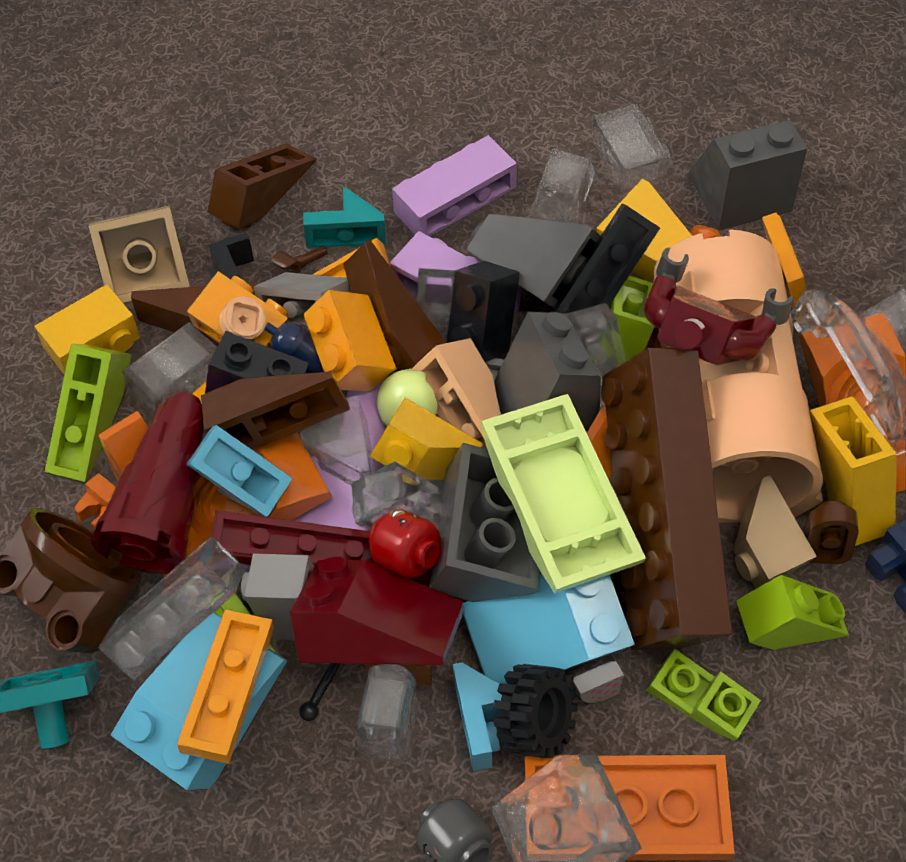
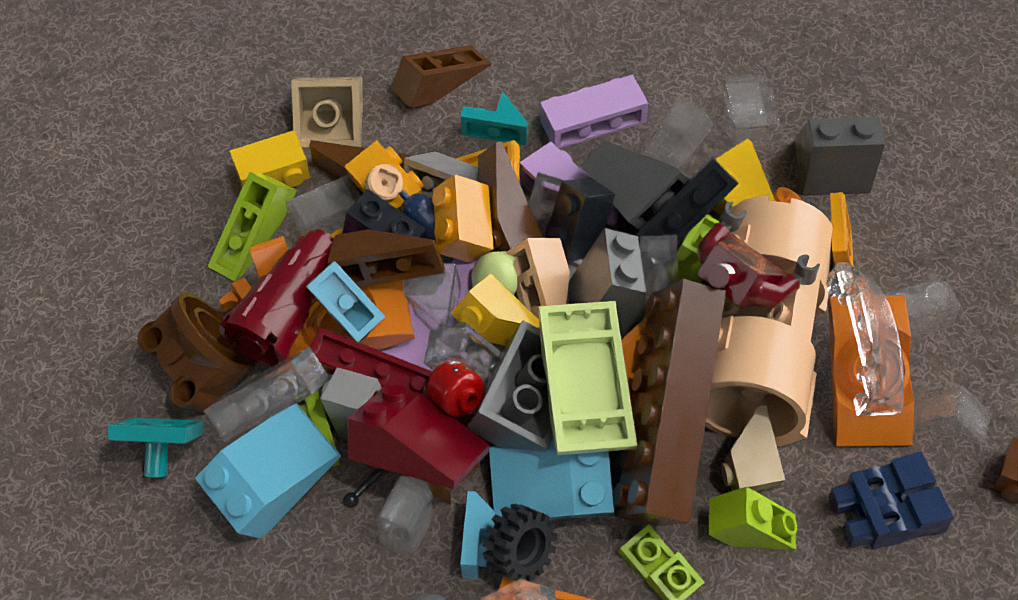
camera: 15 degrees right, 0 degrees up
(226, 687) = (286, 462): light orange plate -> none
(230, 254) = (397, 126): black bracket -> none
(295, 264) = (440, 142): reddish brown hand -> none
(599, 683) = (578, 535): light grey tile -> none
(832, 532) = (803, 464): reddish brown plate -> none
(857, 465) = (838, 418): yellow slope -> none

